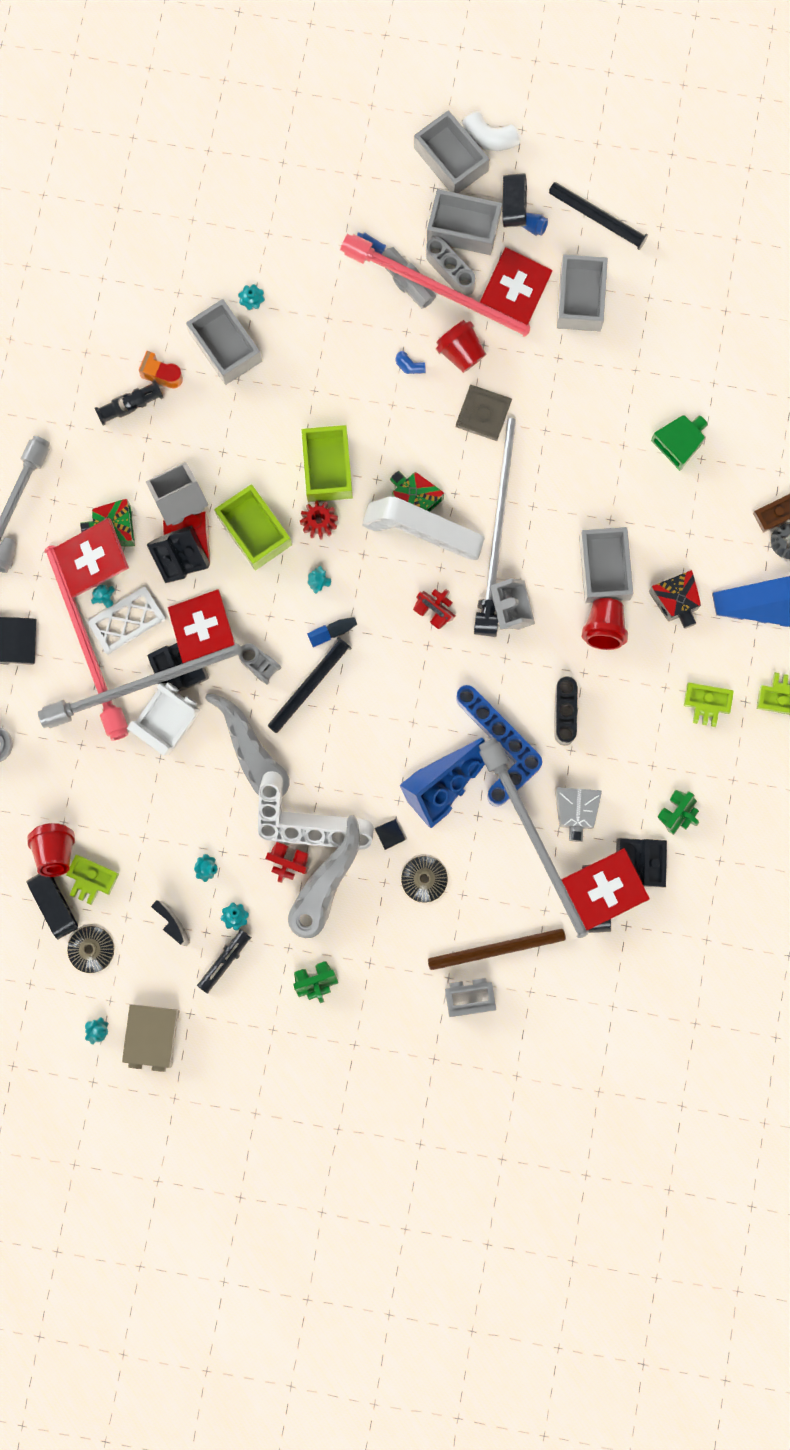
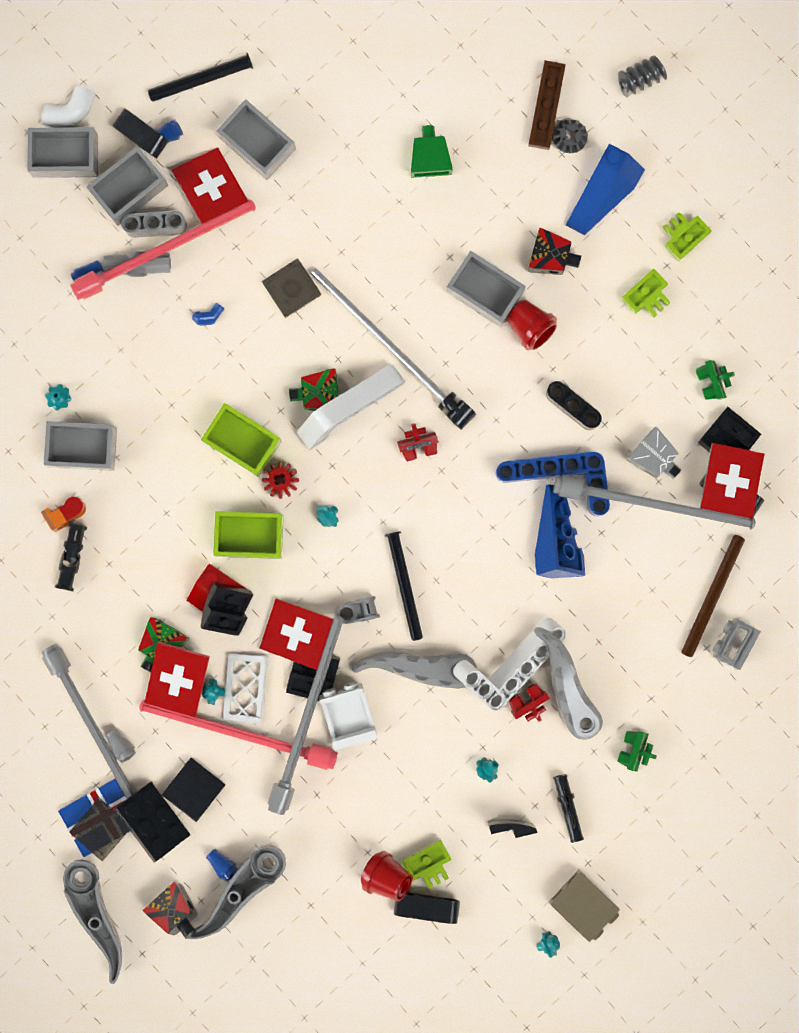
camera: 50 degrees left, 5 degrees up
(102, 949) = (479, 892): dish -> none
(177, 494) = (179, 575): light grey piece -> none
(234, 916) = (540, 775): teal plant -> none
(333, 630) = (372, 544): piece -> none
(390, 834) = (566, 610): black slope -> none
(421, 891) = (607, 609): dish -> none
(461, 346) = (227, 265): red piece -> none
(512, 604) = (462, 383): light grey window -> none

